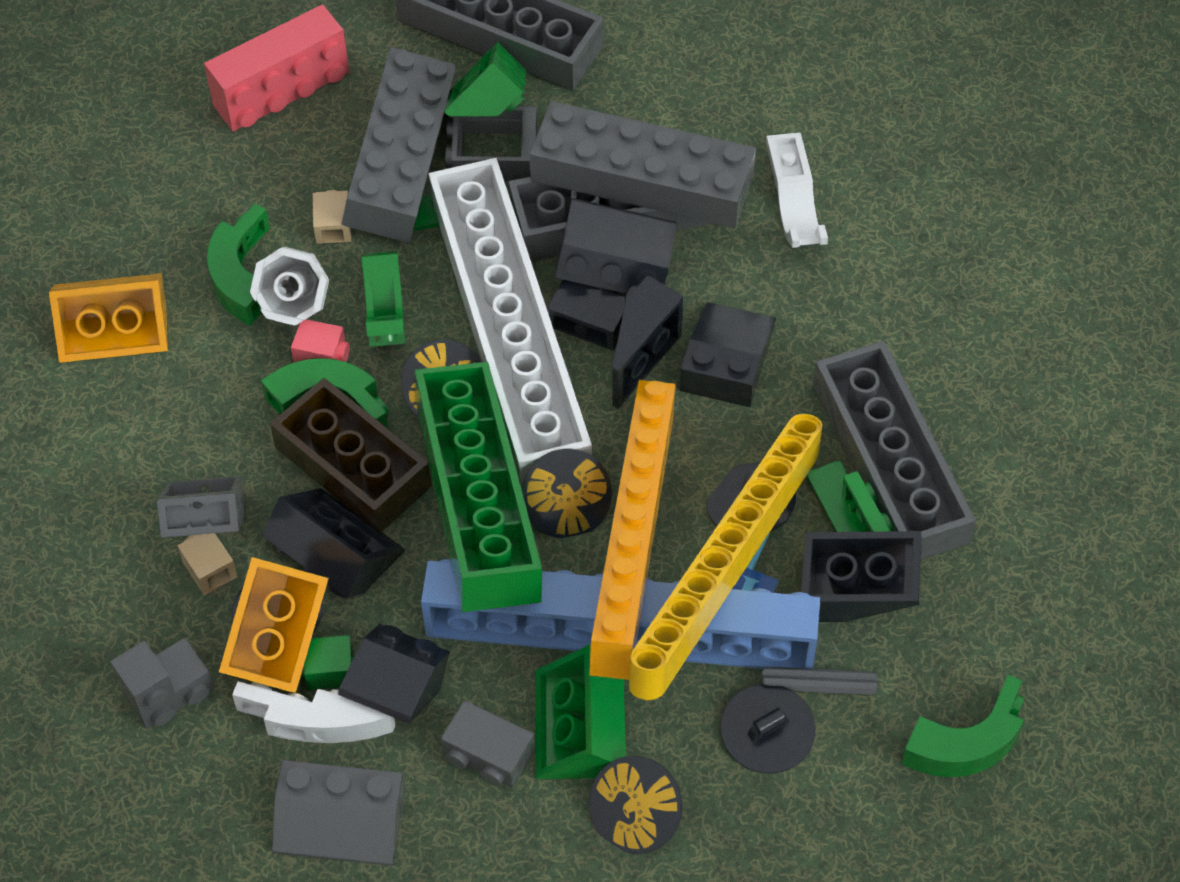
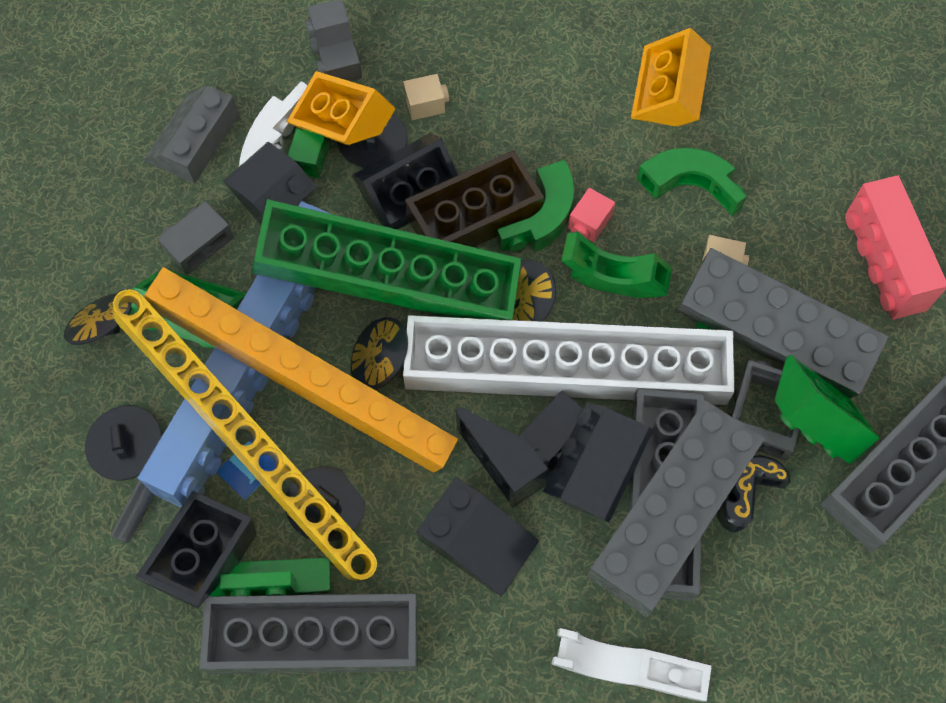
camera: 110 degrees right, 10 degrees up
(190, 511) = (443, 67): dark grey window -> none
(289, 285) = (644, 198): white cone -> none
(969, 750) = (22, 588): green arch -> none

